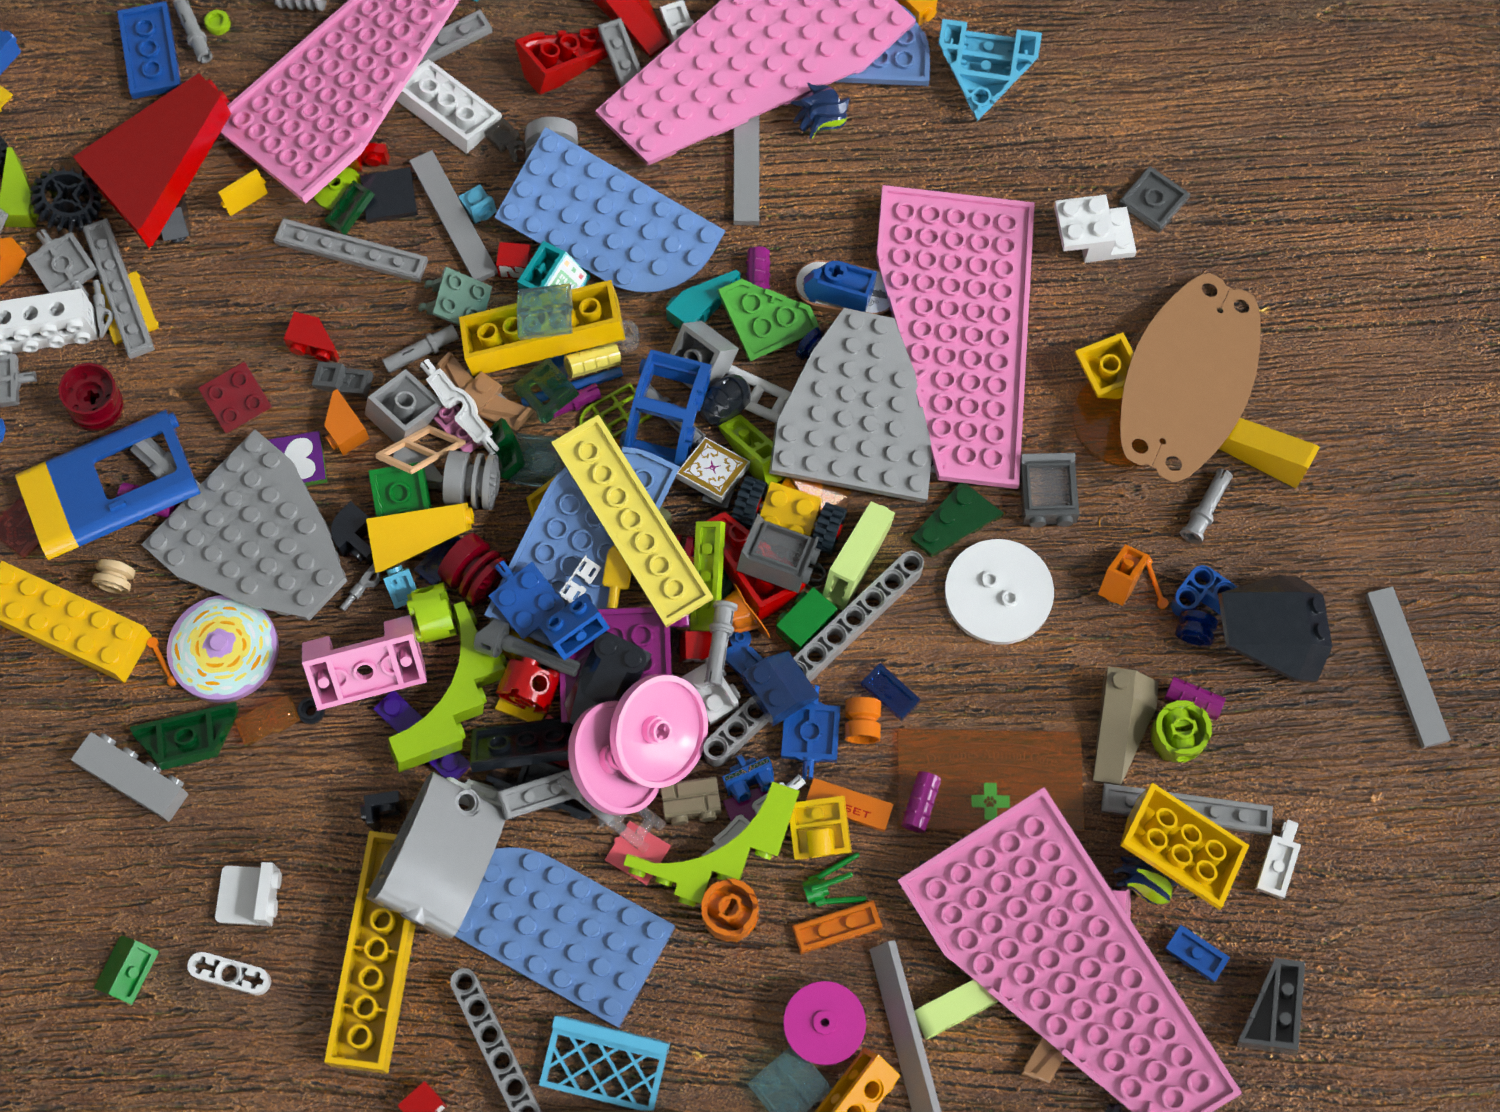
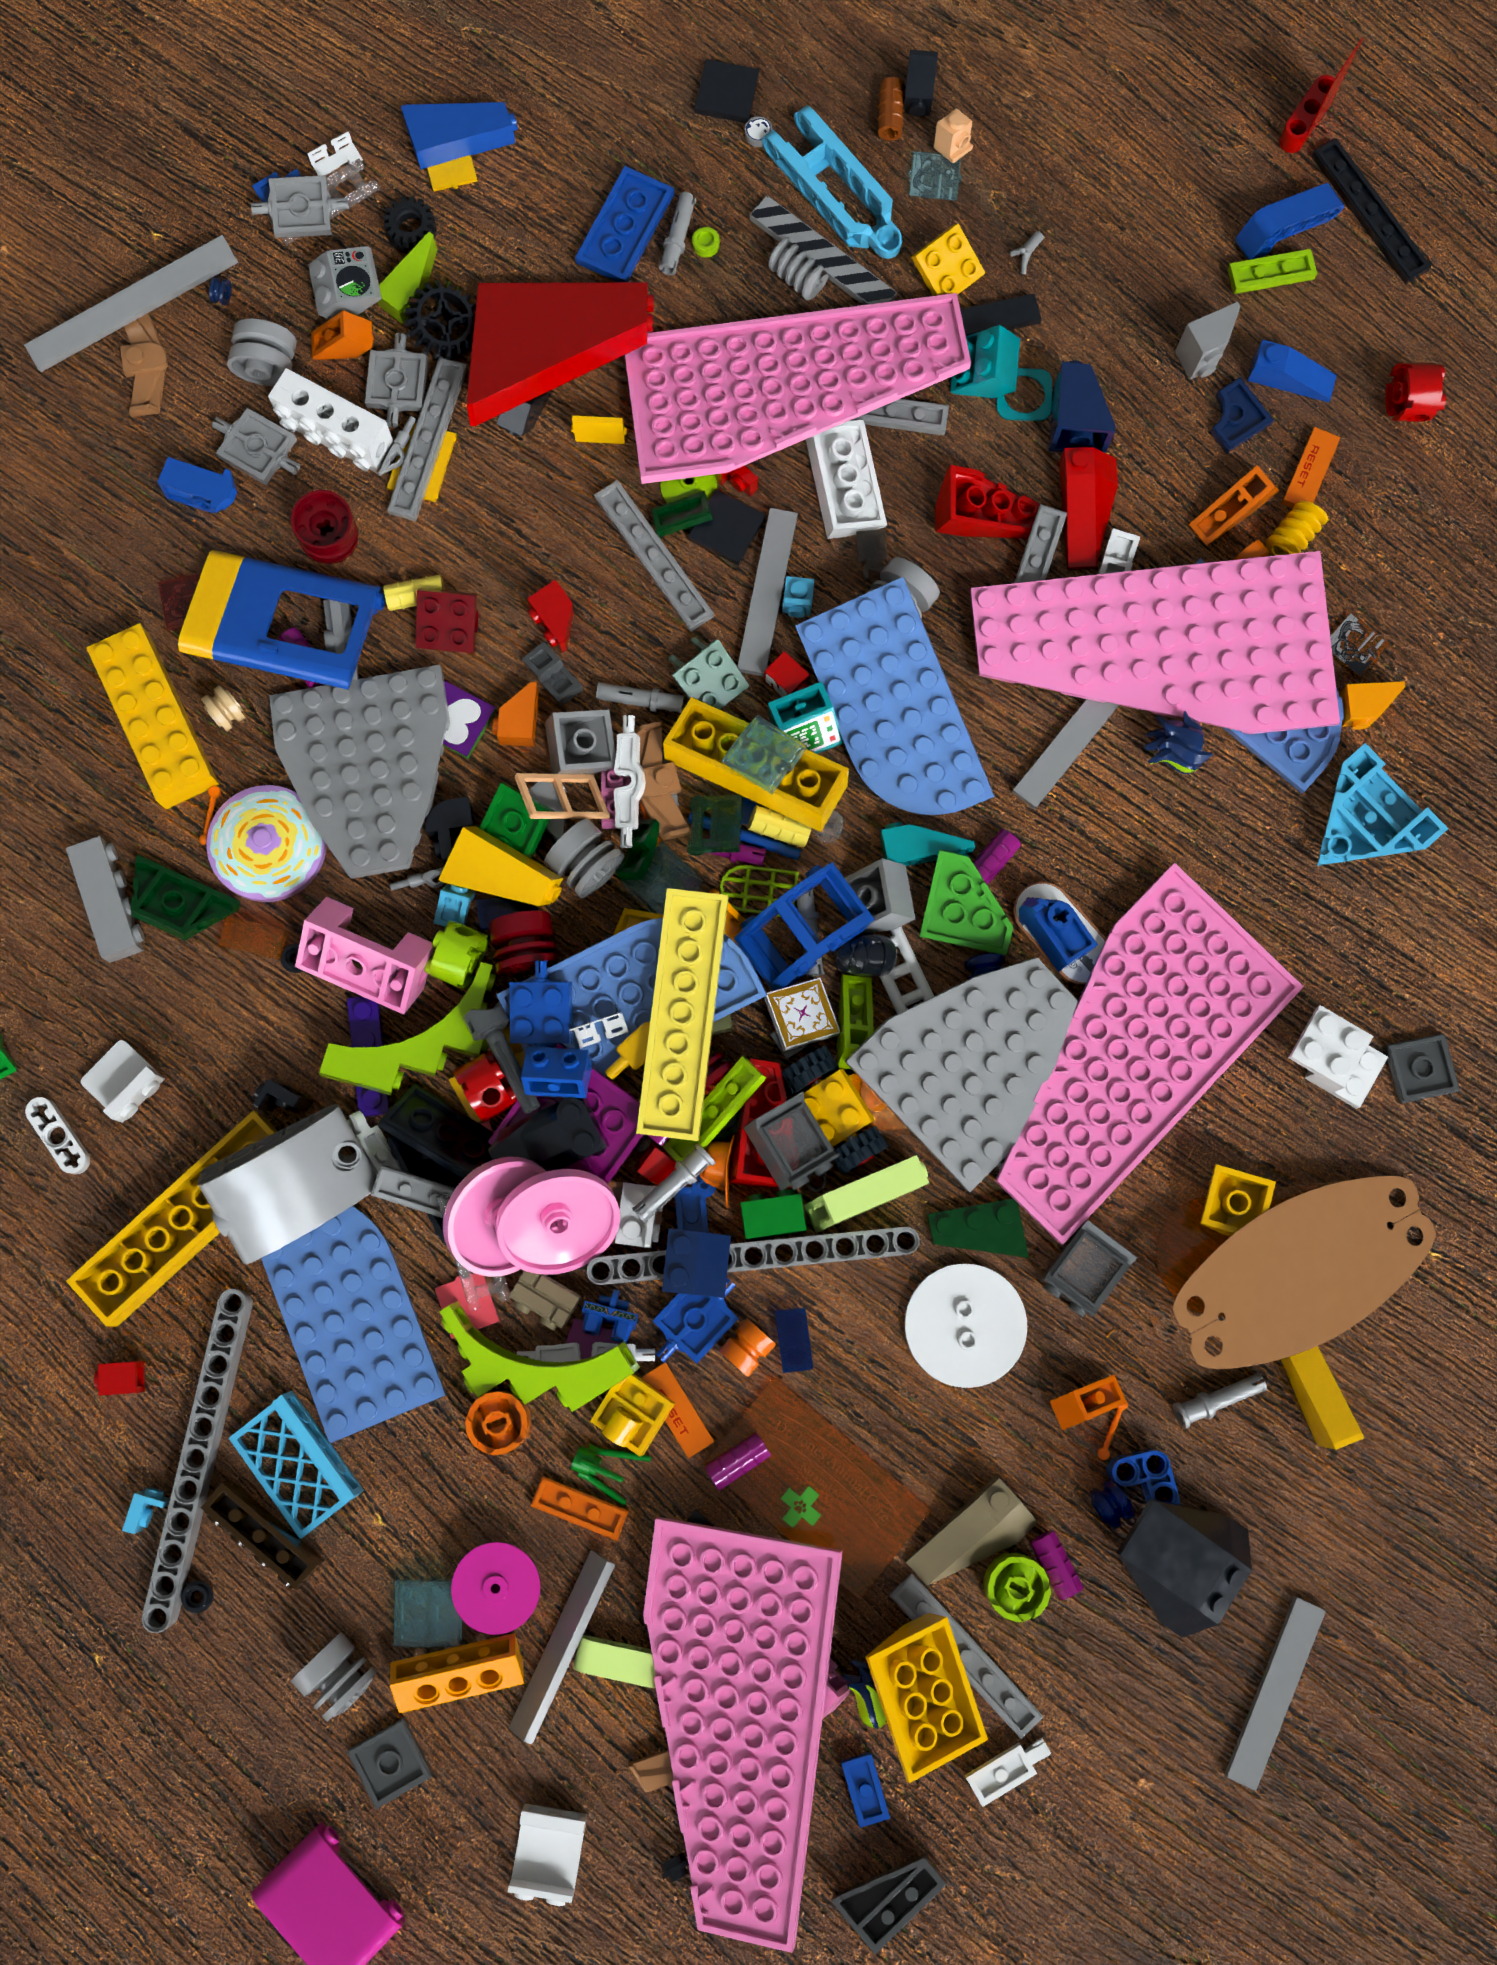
camera: 35 degrees right, 10 degrees up
(190, 399) = (404, 594): none -> light yellow axle

